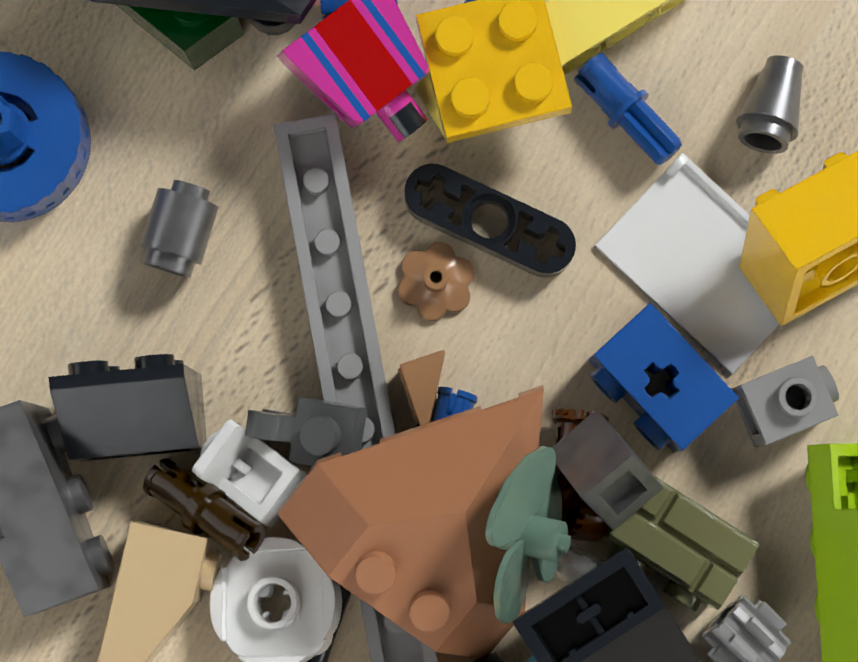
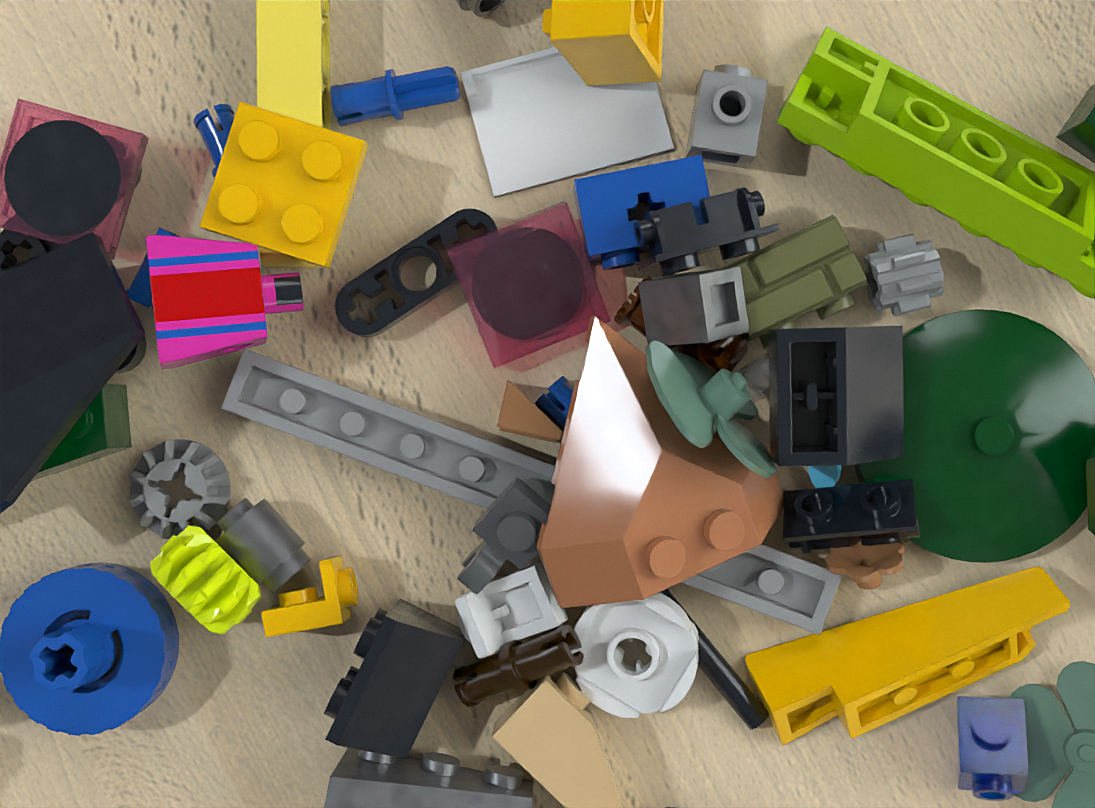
camera: 55 degrees left, 5 degrees up
(121, 199) = (205, 580): none -> neon yellow gear
(144, 298) = (304, 610): none -> yellow bracket
(208, 144) = (203, 473): none -> light grey gear
(435, 298) = (455, 363): medium nougat plant -> none
(537, 318) = (528, 283): none -> clear pink tile
(691, 458) = (677, 240): none -> black hinge

